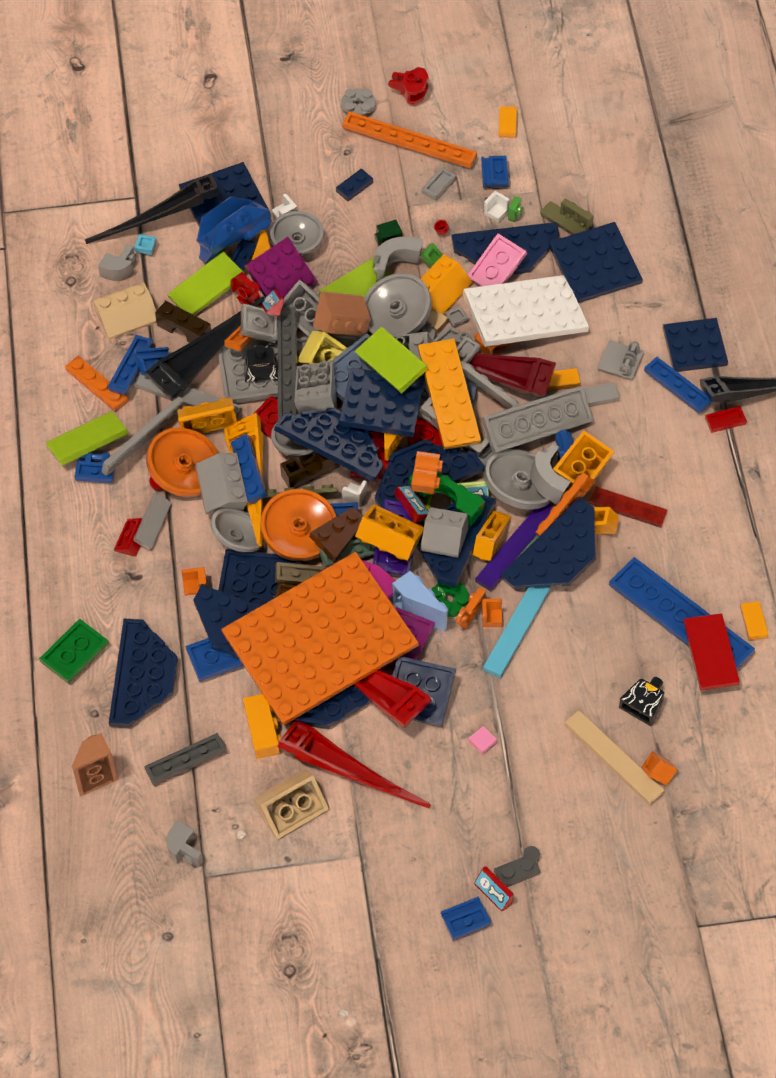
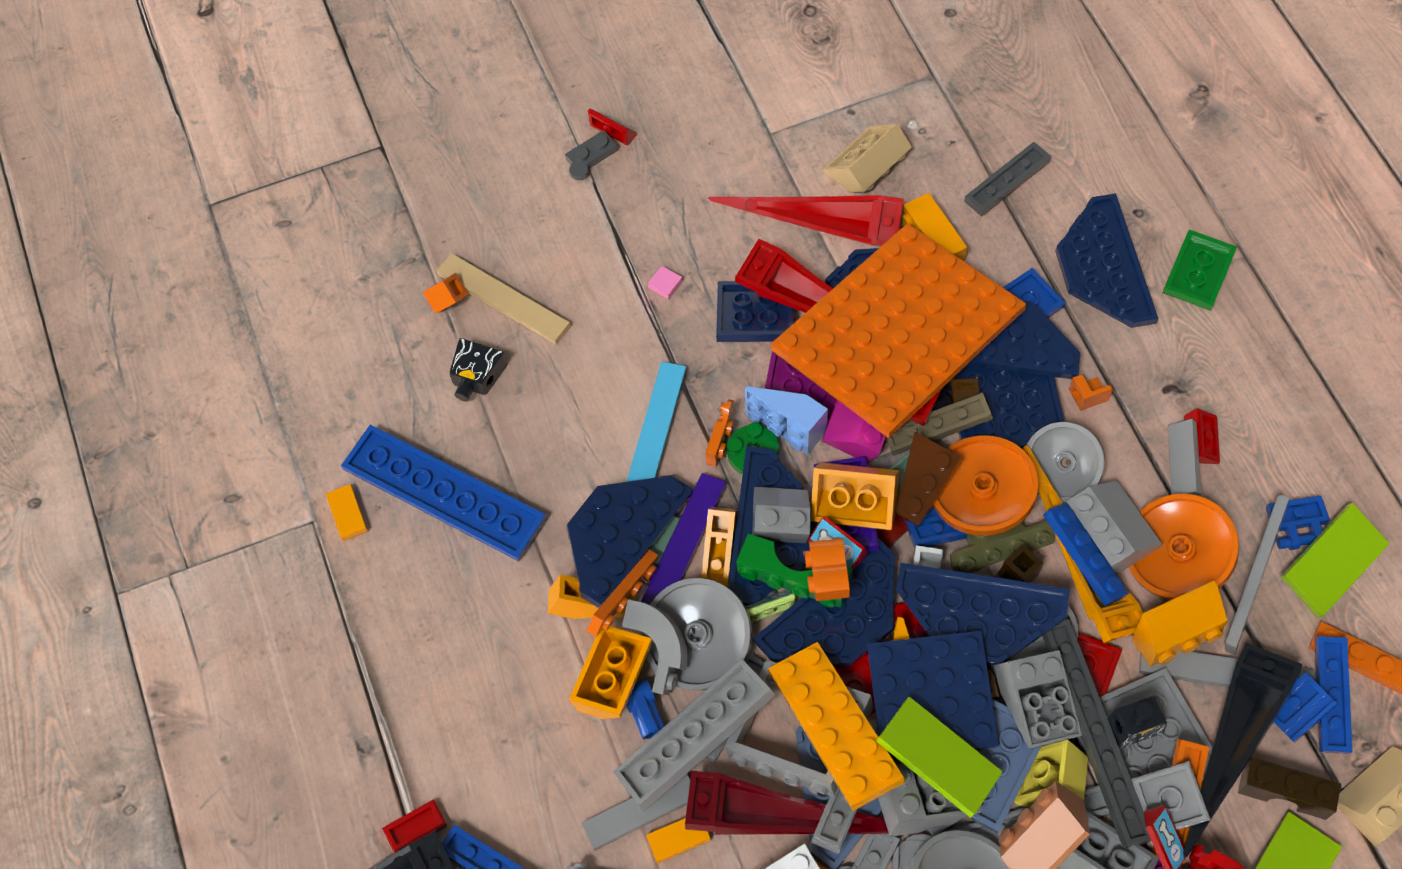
camera: 170 degrees right, 5 degrees up
(93, 765) = (1104, 124): nougat slope -> none
(179, 845) = (974, 87): light grey brick -> none
(465, 918) = (636, 89): blue plate -> none
(492, 612) = (692, 437): orange panel -> none
(628, 507) = (537, 642): clear red tile -> none
(711, 651) = (396, 443): red tile -> none

